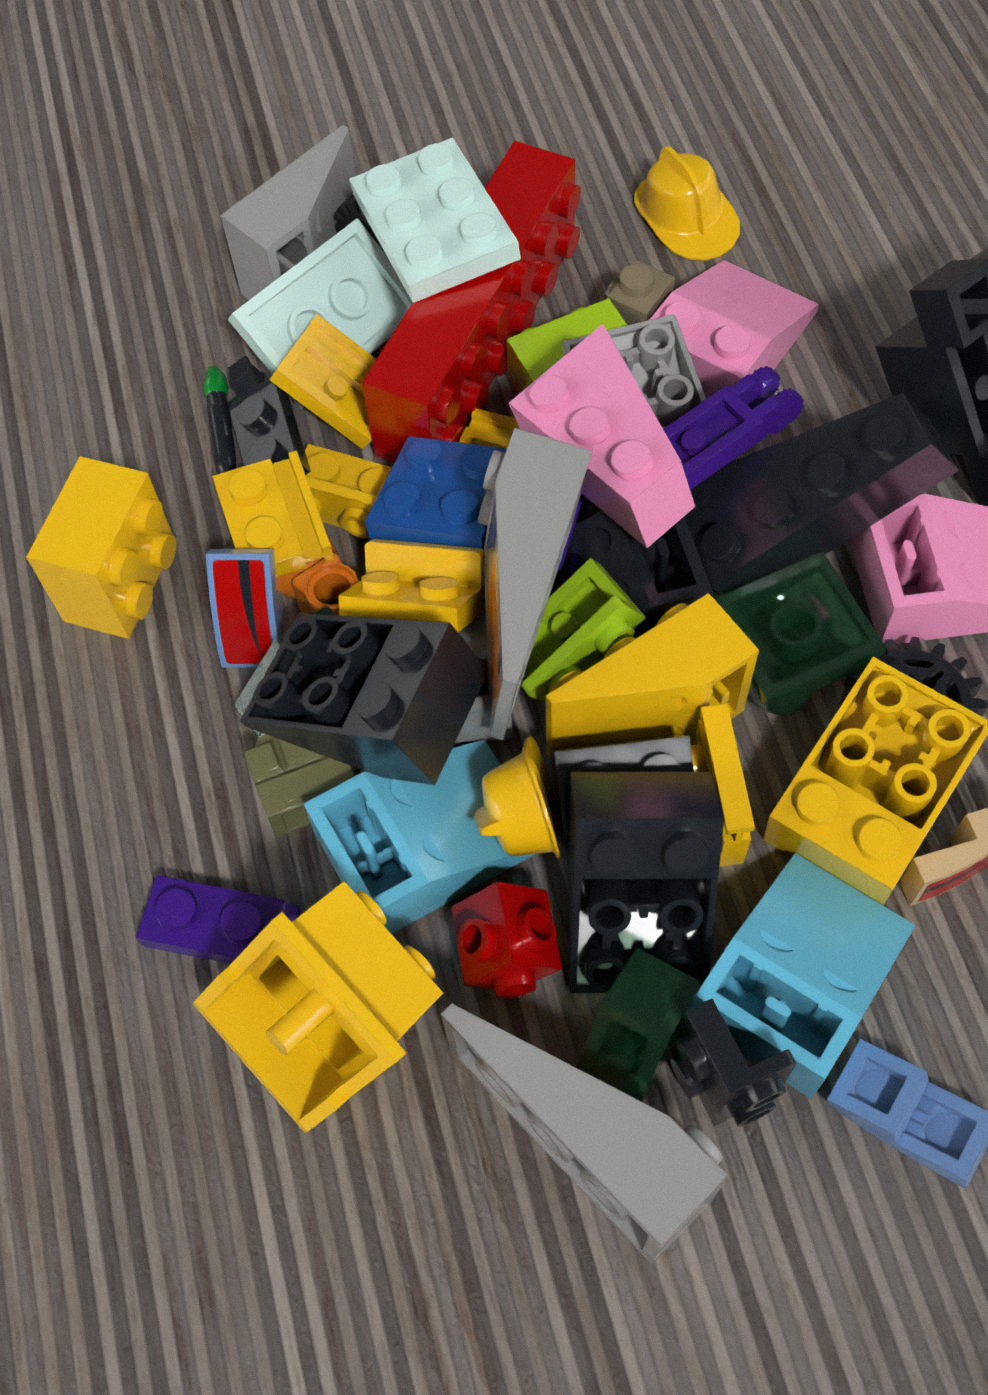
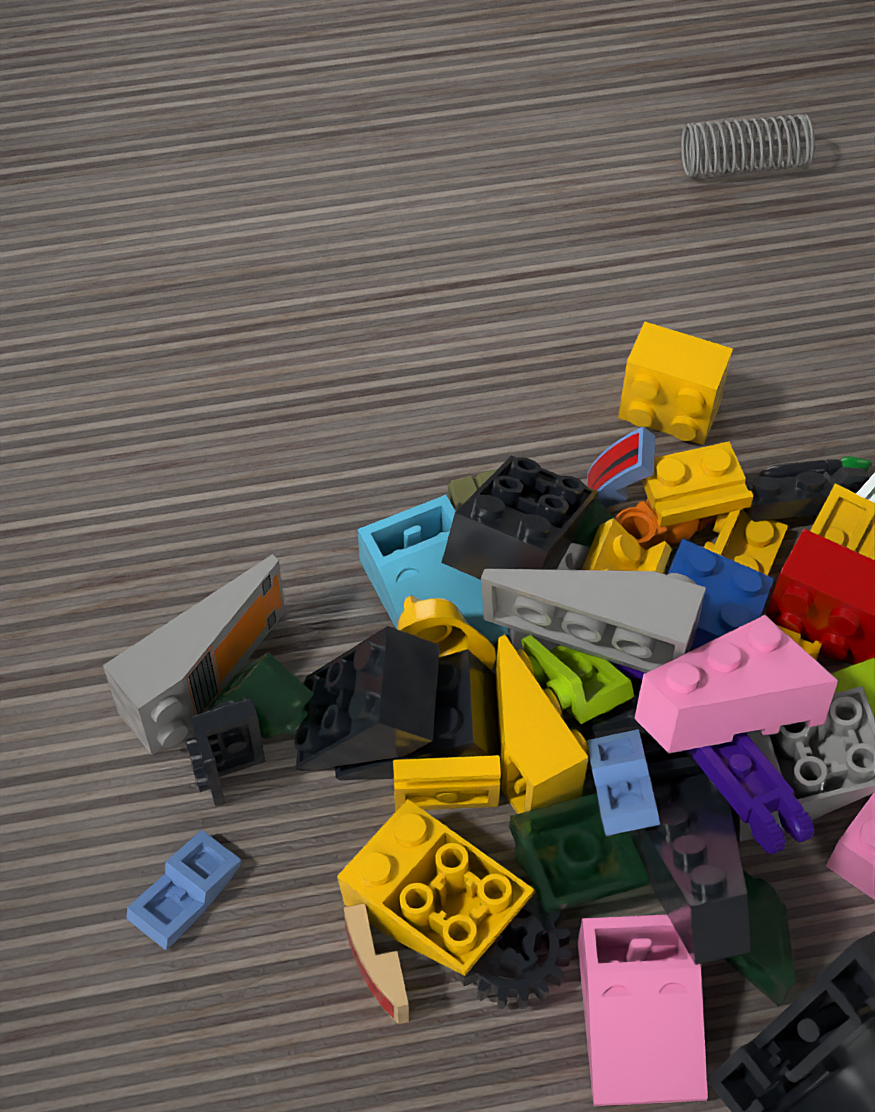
camera: 90 degrees right, 5 degrees down
(206, 919) = (383, 472): dark purple hinge -> none
(320, 1003) = (307, 508): yellow piece -> none
(506, 939) = (335, 611): red brick -> none
(730, 561) = (622, 782): none -> medium blue slope
(804, 970) = (289, 818): medium azure slope -> none

